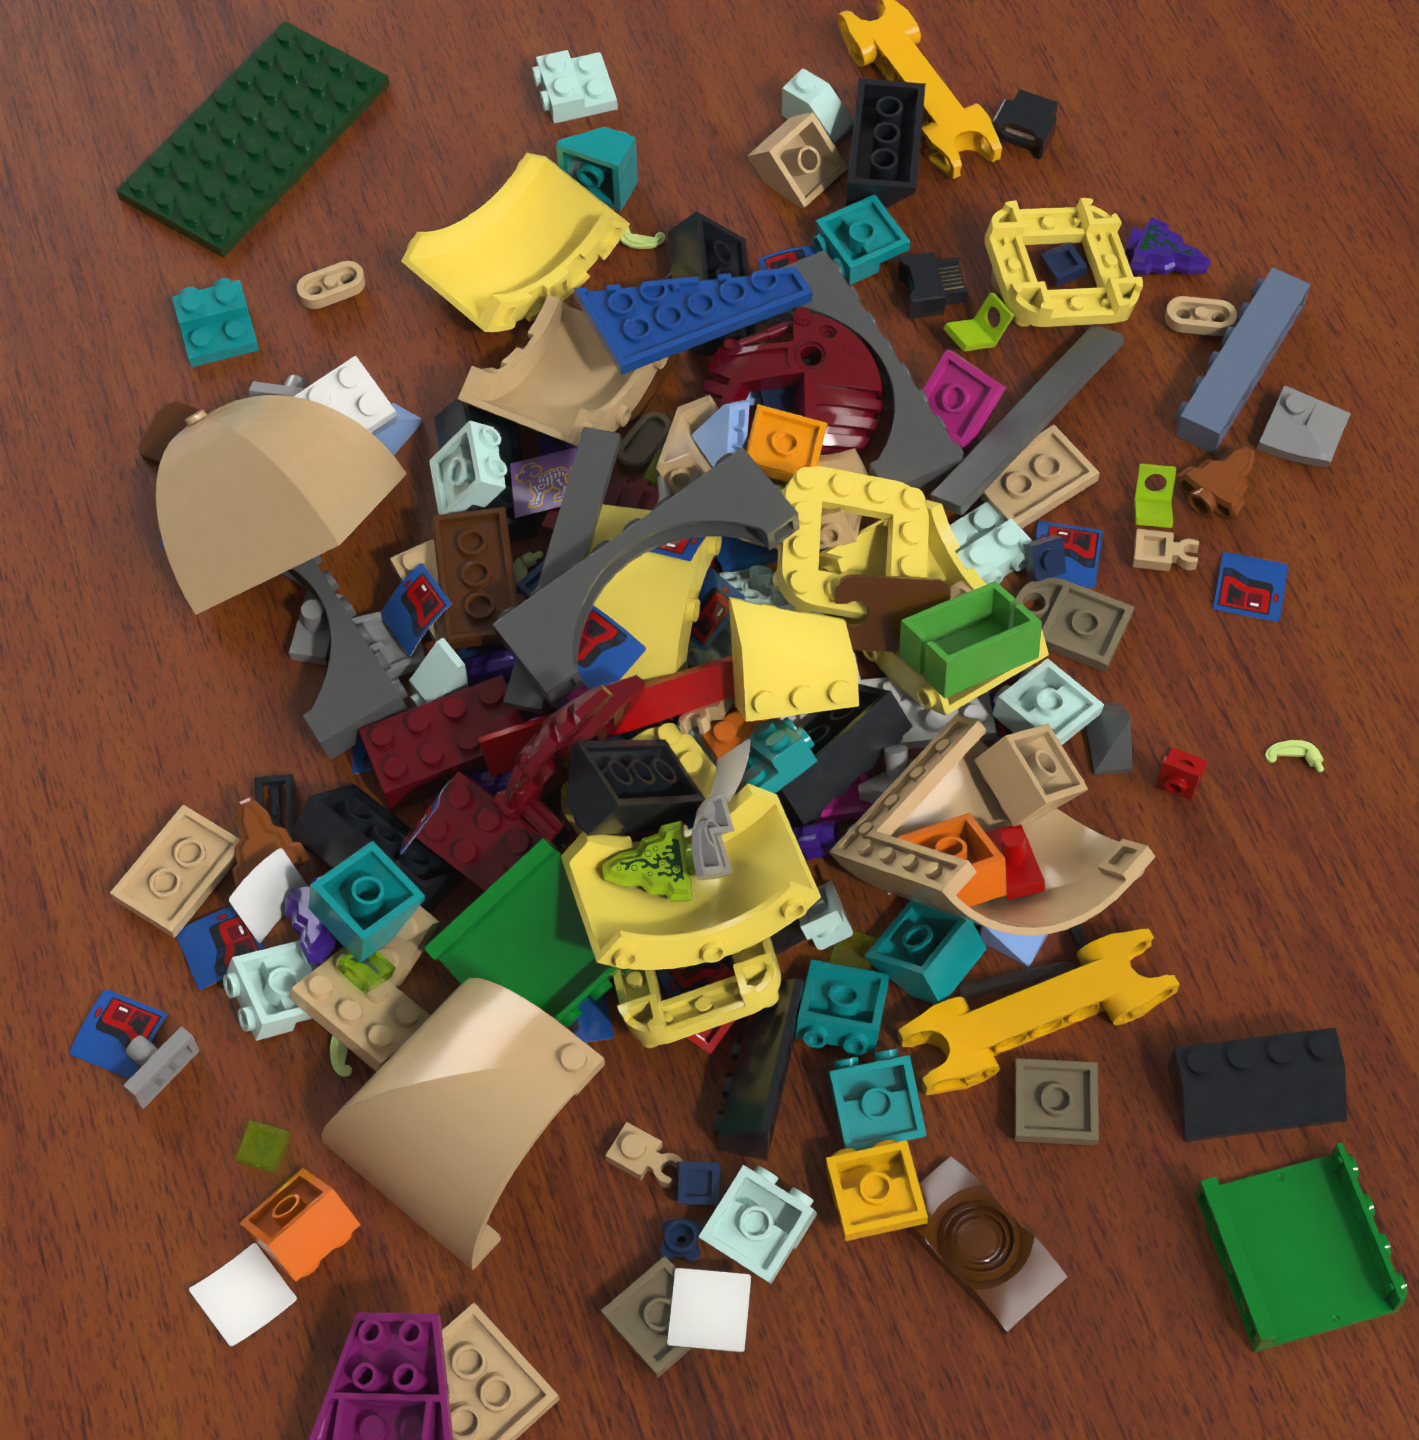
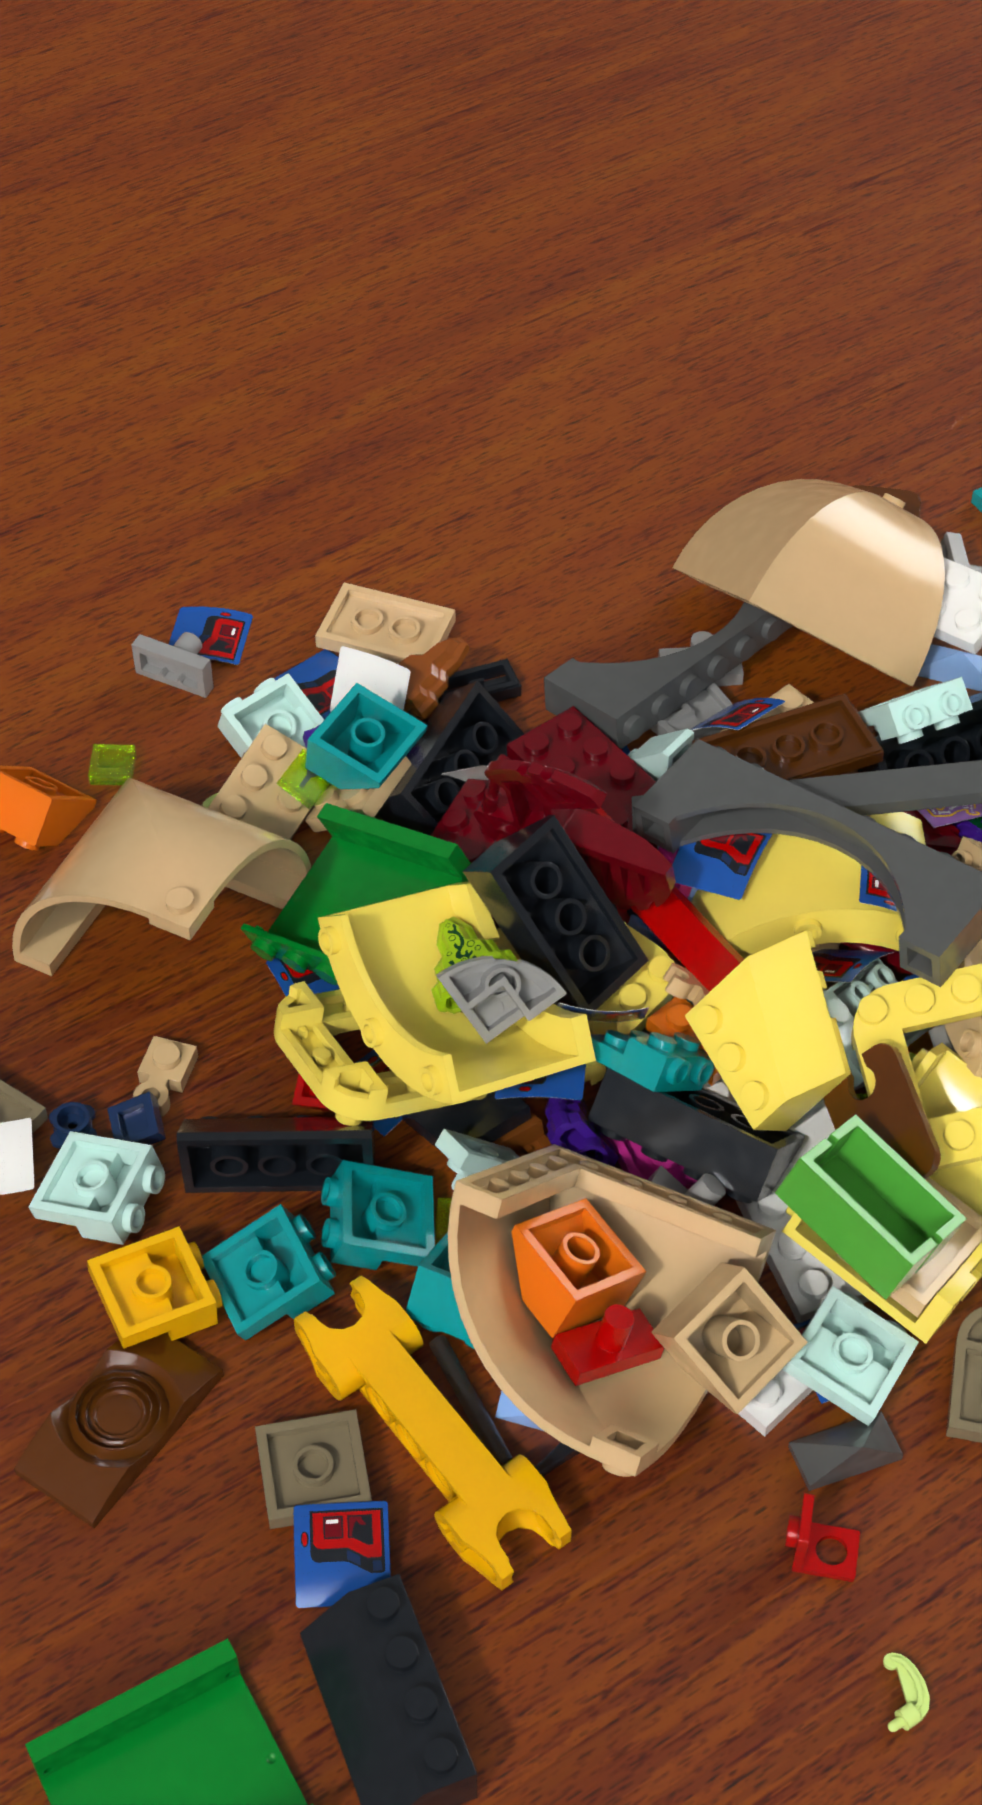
camera: 75 degrees right, 10 degrees down
(1130, 1094) = (339, 1550): none -> sticker

